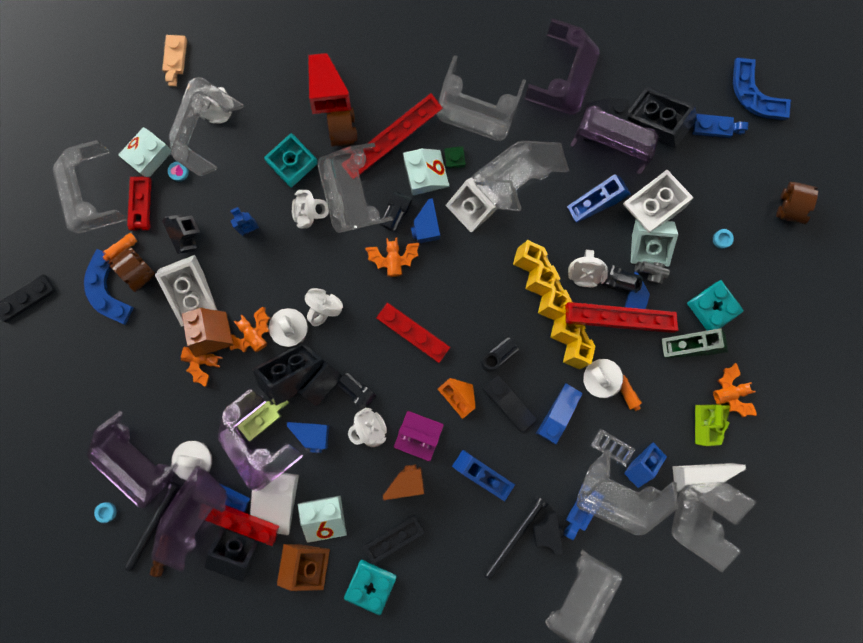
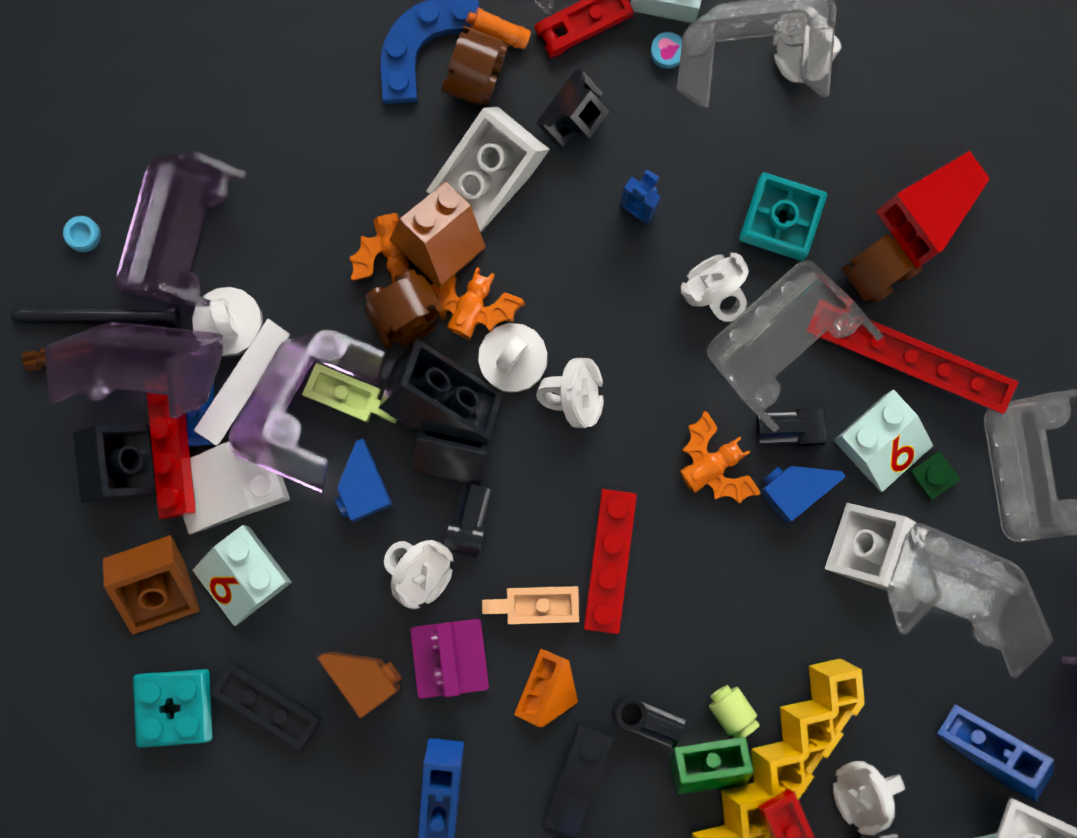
camera: 60 degrees right, 0 degrees up
(226, 469) = (241, 383): none -> white sticker
(234, 368) = (403, 309): none -> reddish brown brick
(415, 379) = (536, 605): none -> light nougat plate
(516, 312) = (733, 712): none -> yellowish green brick
(535, 336) = (711, 765): none -> green brick

